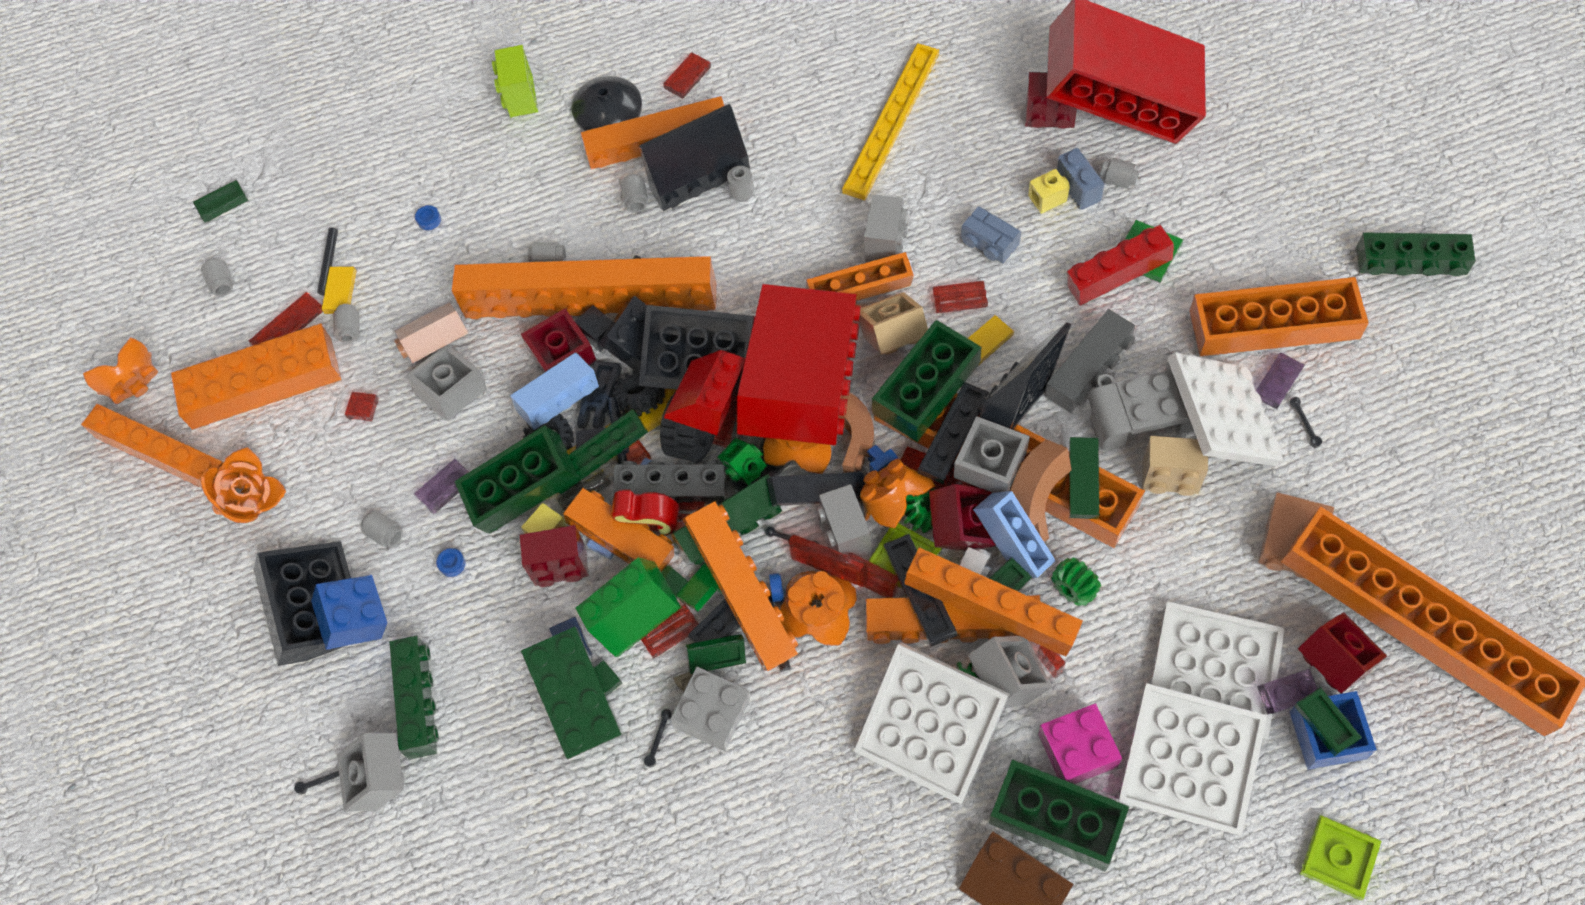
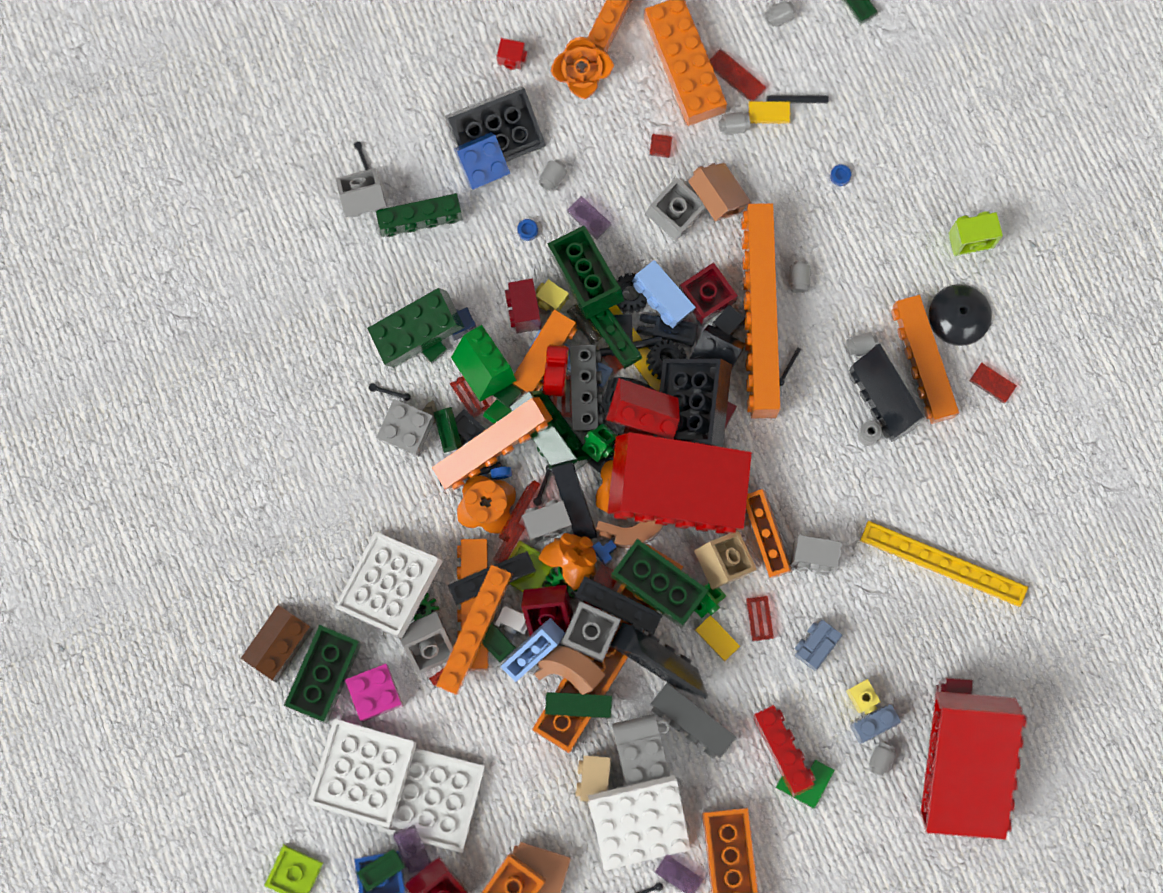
camera: 80 degrees right, 15 degrees up
(207, 582) = (511, 54): none -> red brick
(1076, 581) = (499, 697): green gear -> none

